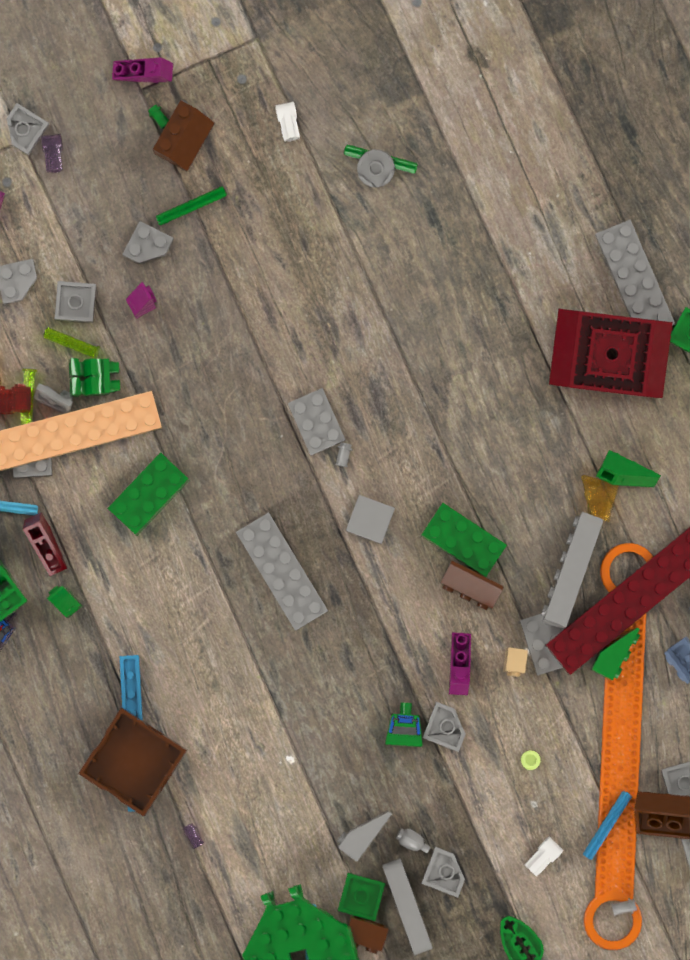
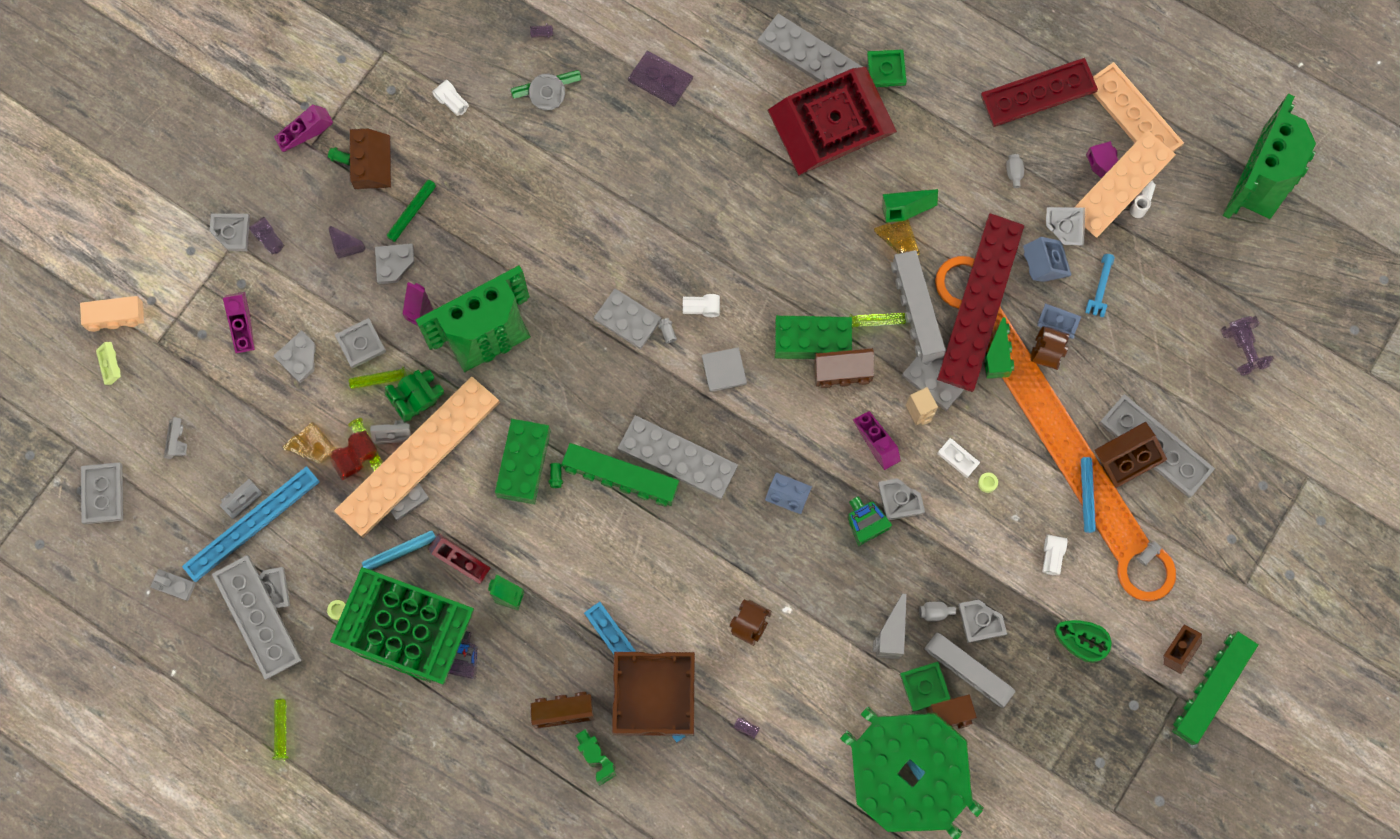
camera: 30 degrees left, 10 degrees down
(51, 726) = (562, 710): none -> reddish brown slope
(53, 780) = (594, 756): none -> green hips
(114, 202) = (344, 244): none -> clear purple slope
(169, 523) = (555, 475): none -> green pin
(186, 353) = (480, 321): none -> green wedge
(223, 556) = (620, 474): none -> green brick
(250, 752) = (750, 622): none -> reddish brown brick
(354, 662) = (788, 493): none -> sand blue bracket
(389, 452) = (707, 305): none -> white piece
(407, 105) = (541, 31): none -> clear purple pin
(485, 216) = (660, 78): none -> clear purple tile
(519, 723) = (958, 458): none -> white plate
(530, 558) = (878, 319): none -> clear neon green axle
(660, 679) = (1049, 347): none -> reddish brown brick

